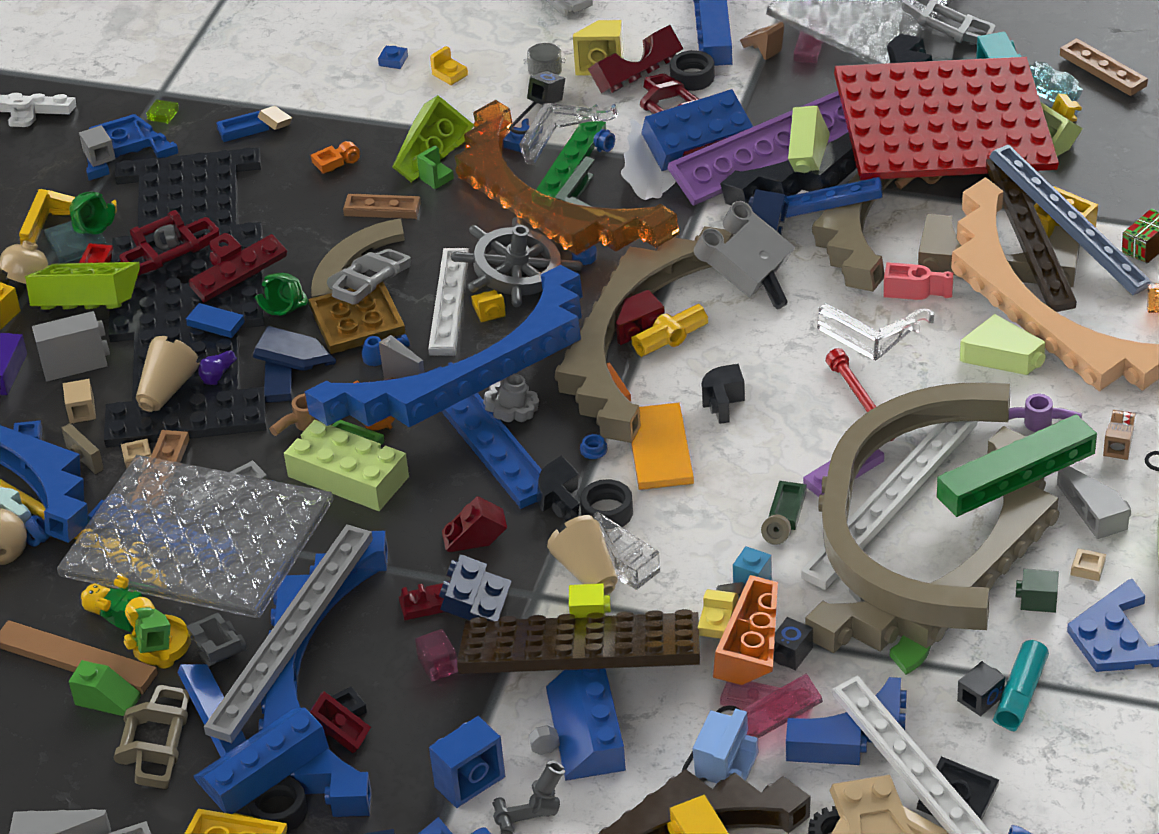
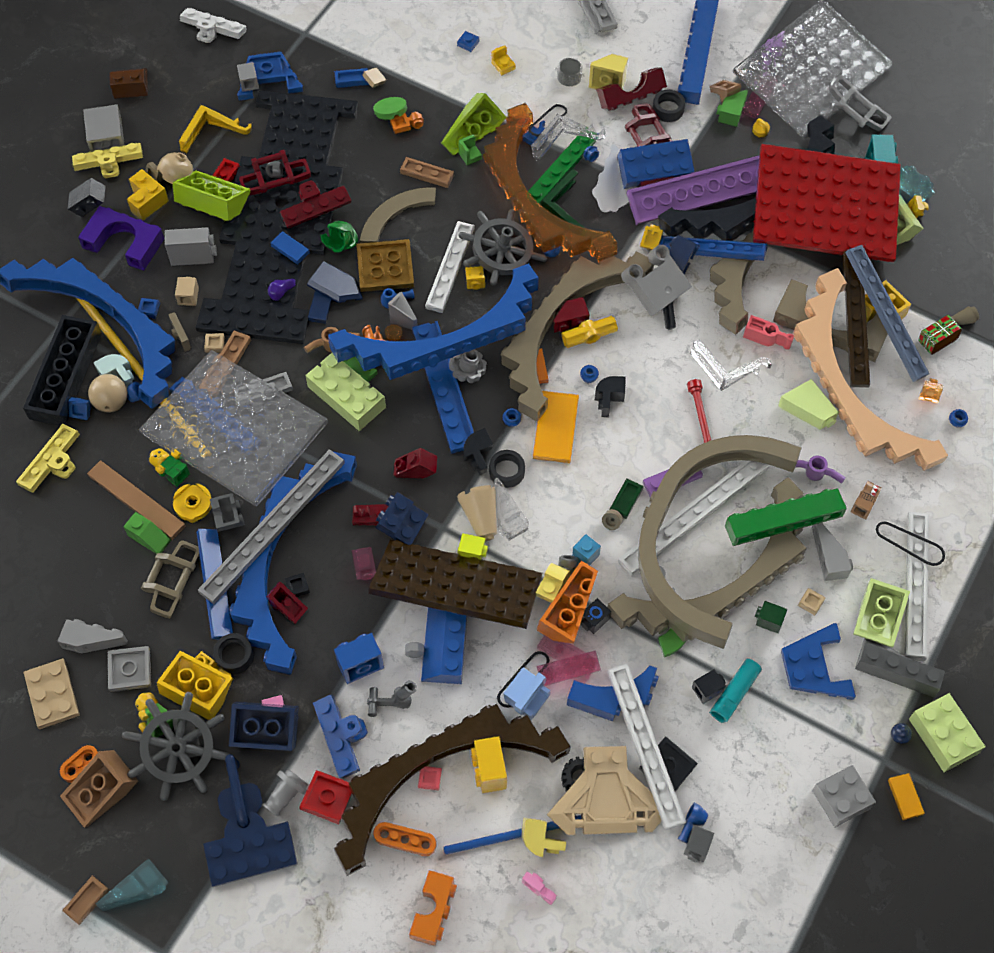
camera: 10 degrees right, 20 degrees up
(69, 244) = (216, 148): clear light blue tile -> none
(91, 213) = (229, 136): green helmet -> none
(150, 626) = (185, 494): bright green piece -> none
(162, 111) = (301, 51): clear neon green tile -> none
(164, 372) = (243, 289): tan cone -> none
(263, 760) = (228, 623): blue slope -> none
(308, 144) = (389, 107): none -> bright green tile
(385, 263) = (396, 244): light grey bar -> none
(546, 88) = (563, 98): black brick -> none
(685, 377) = (589, 378): none -> blue plate
(717, 209) = (651, 237): none -> yellow bracket
(779, 56) = (731, 108): none -> bright green slope
(807, 139) = (725, 202): yellowish green slope -> none
(824, 70) = (761, 128): none -> yellow tile
(1103, 67) = (956, 174): medium nougat plate -> none

